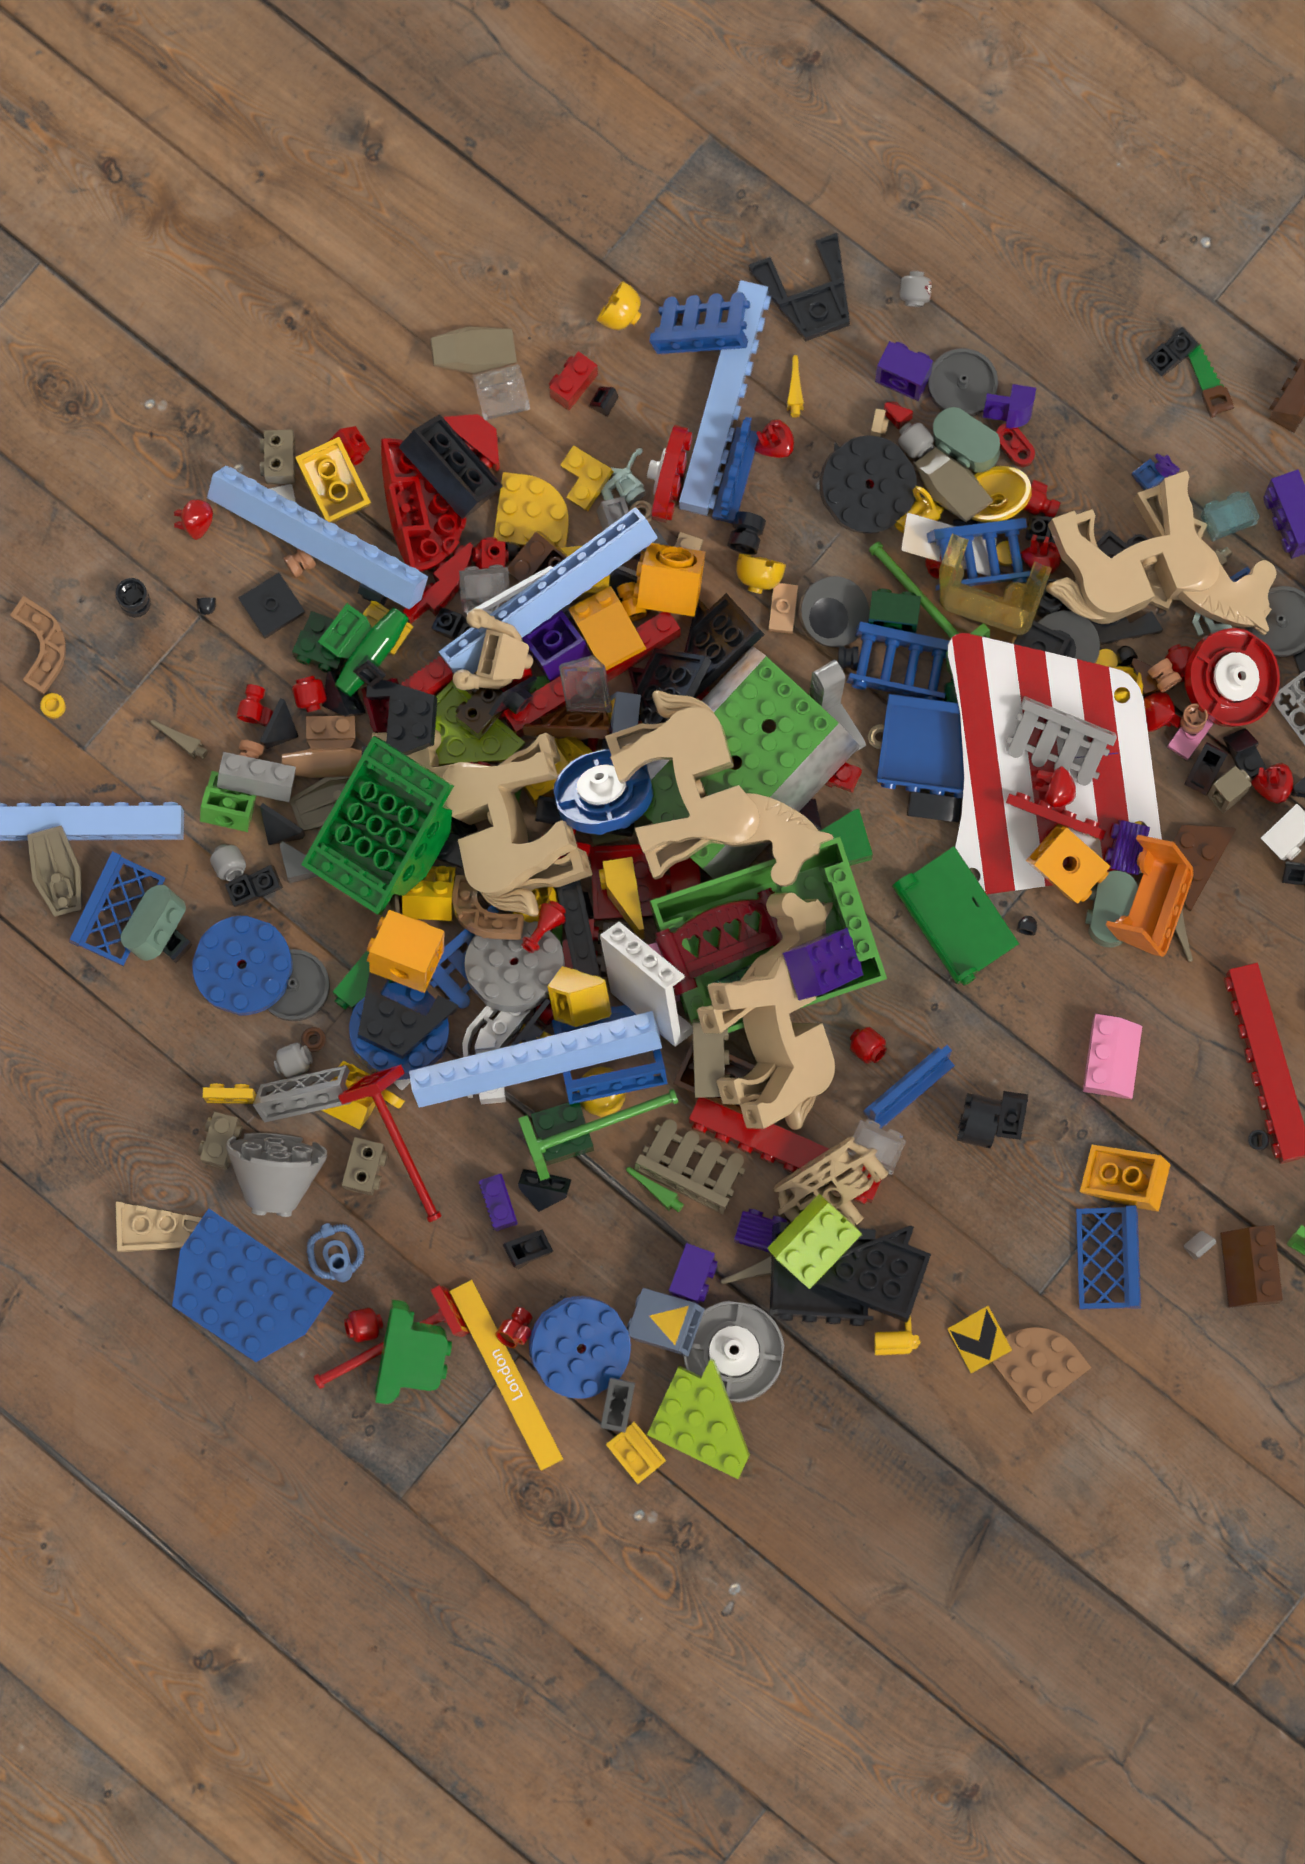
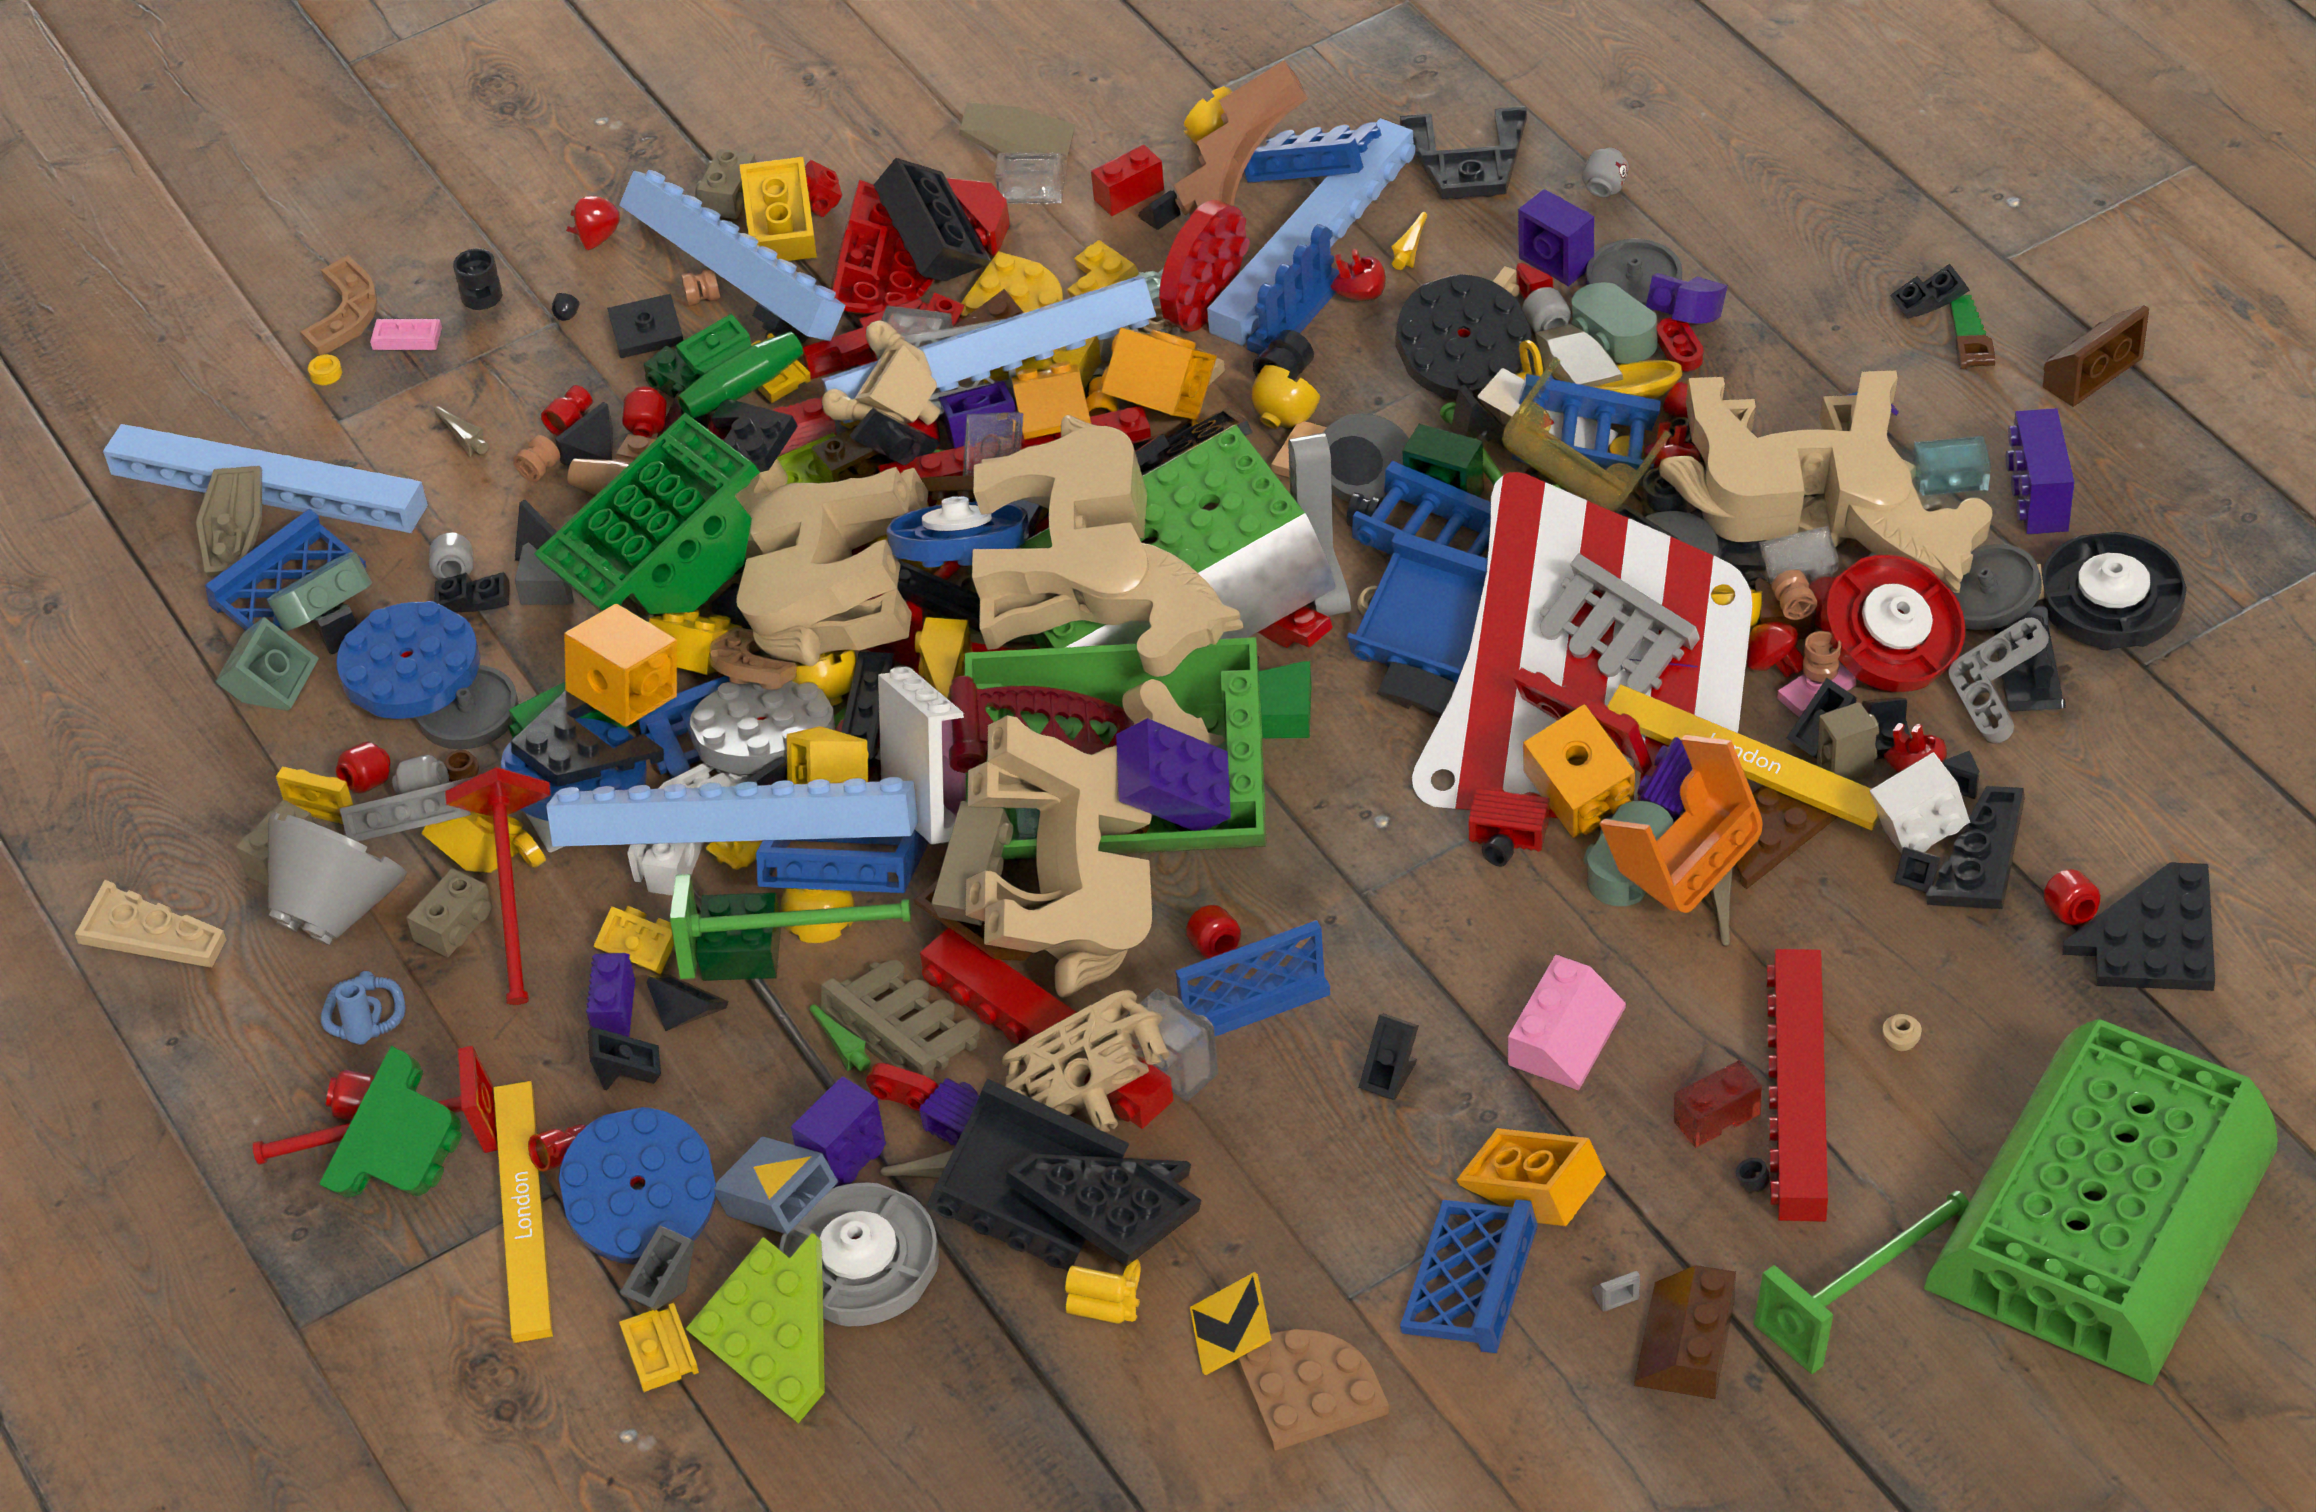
camera: 20 degrees right, 30 degrees down
(100, 659) = (406, 334): none -> bright pink plate
(141, 992) = (267, 667): none -> sand green slope
(226, 806) = (483, 497): bright green brick -> none
(244, 1289) = (217, 1018): blue plate -> none
(249, 1060) = (363, 767): none -> red head
(256, 777) = (530, 470): light grey brick -> none
(369, 671) = (724, 384): black slope -> none
(495, 1150) = (643, 940): none -> yellow bracket
(550, 916) = (831, 676): red piece -> none
(642, 349) = (1247, 120): none -> nougat arch
(702, 1220) = (900, 1085): none -> red plate
(814, 1241) = (1025, 1110): lime piece -> none
(899, 562) = (1474, 418): none -> black slope
(944, 910) = (1392, 818): green door -> none
(979, 1120) = (1334, 1046): black brick -> none
(1027, 900) = (1512, 814): none -> red brick
(1058, 785) = (1595, 674): red piece -> none
(1156, 636) = (1805, 551): none -> clear slope
(1168, 816) = (1758, 761): none -> yellow tile
(1224, 1094) = (1717, 1102): none -> clear red brick

